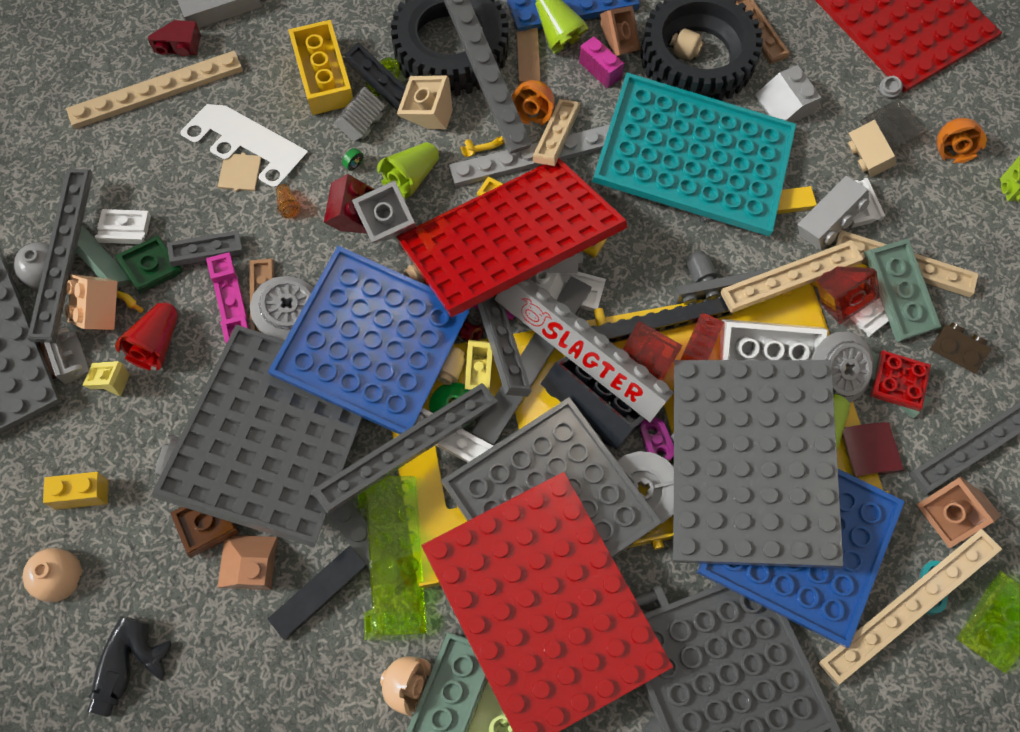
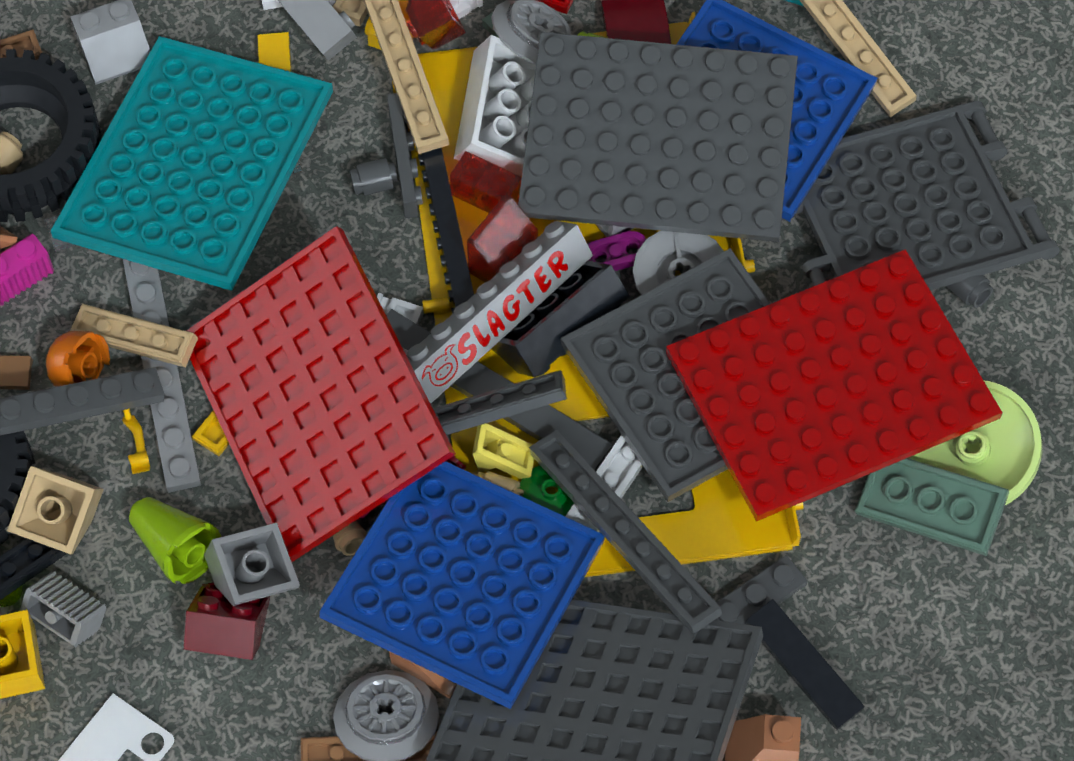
camera: 85 degrees left, 5 degrees down
(286, 202) = (204, 719): clear orange cone -> none
(352, 159) = (141, 622): tile -> none
(394, 559) = (777, 565): clear neon green bracket -> none
(404, 683) = (920, 556): light nougat cylinder -> none

